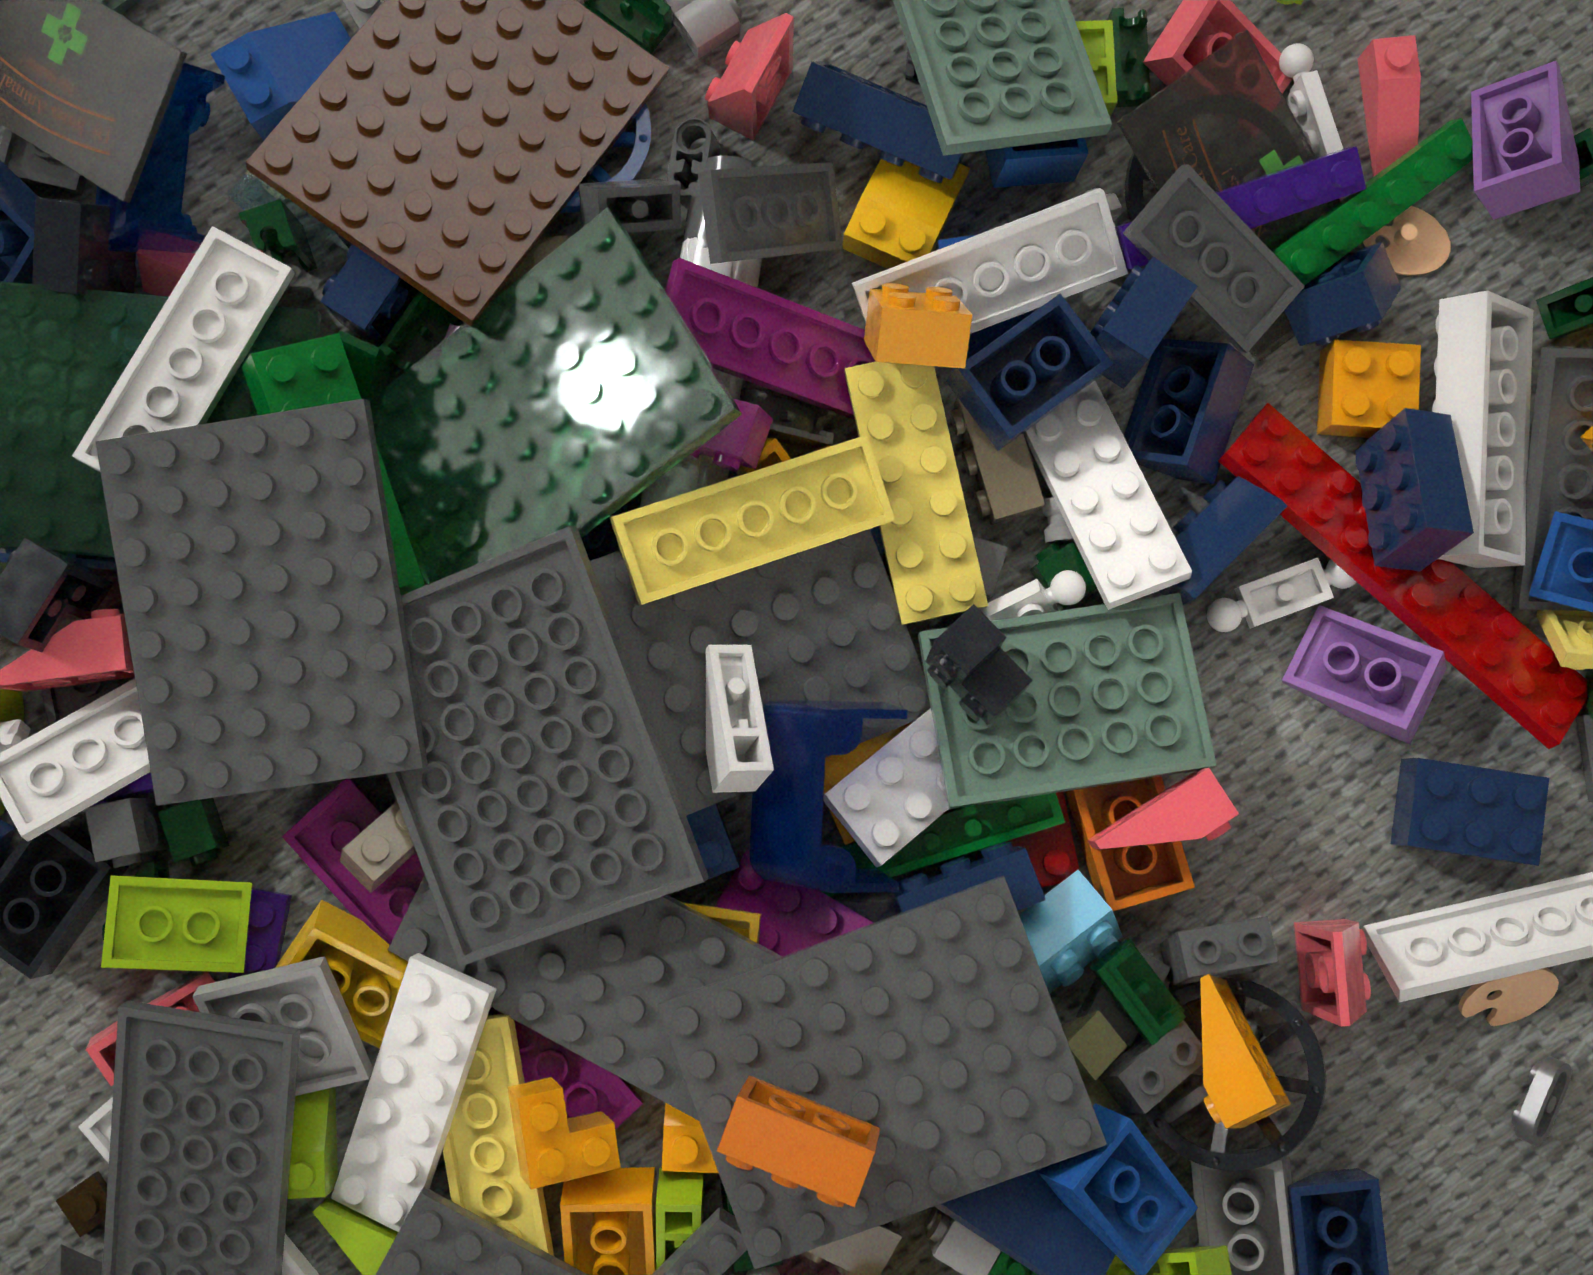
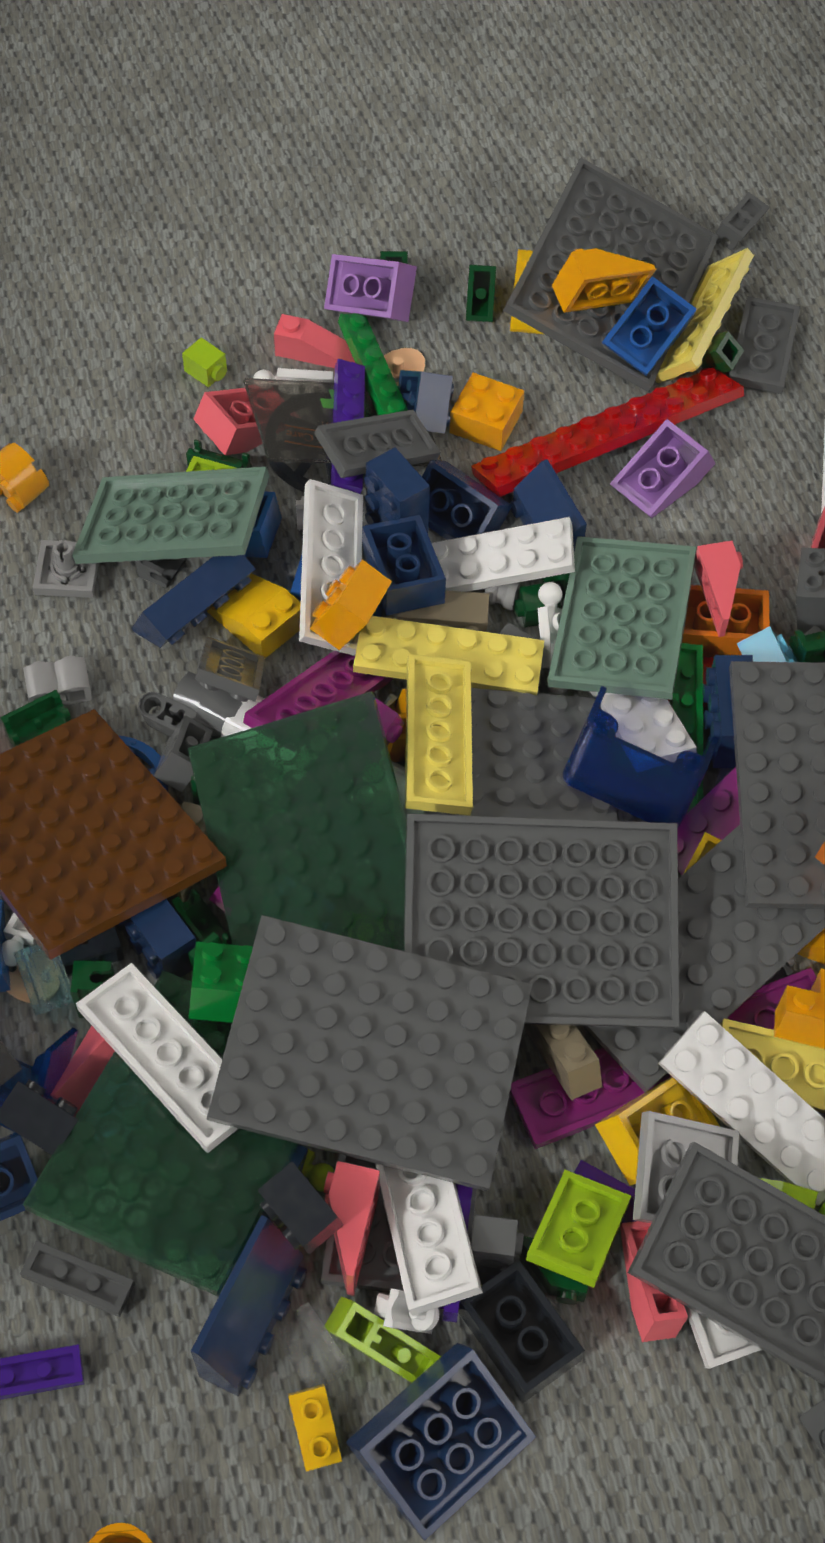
camera: 65 degrees left, 25 degrees down
(85, 1204) = (772, 1393): dark brown plate -> none
(194, 831) = (511, 1203): dark green brick -> none
(735, 721) = (577, 791): white slope -> none
(753, 76) = (128, 654): coral slope -> none
(976, 666) = (583, 644): black brick -> none
(1278, 595) = (596, 497): white plate -> none
(1413, 490) = (562, 400): dark blue brick -> none
(1470, 811) = (767, 448): dark blue brick -> none
(1487, 391) = (538, 362): white brick -> none

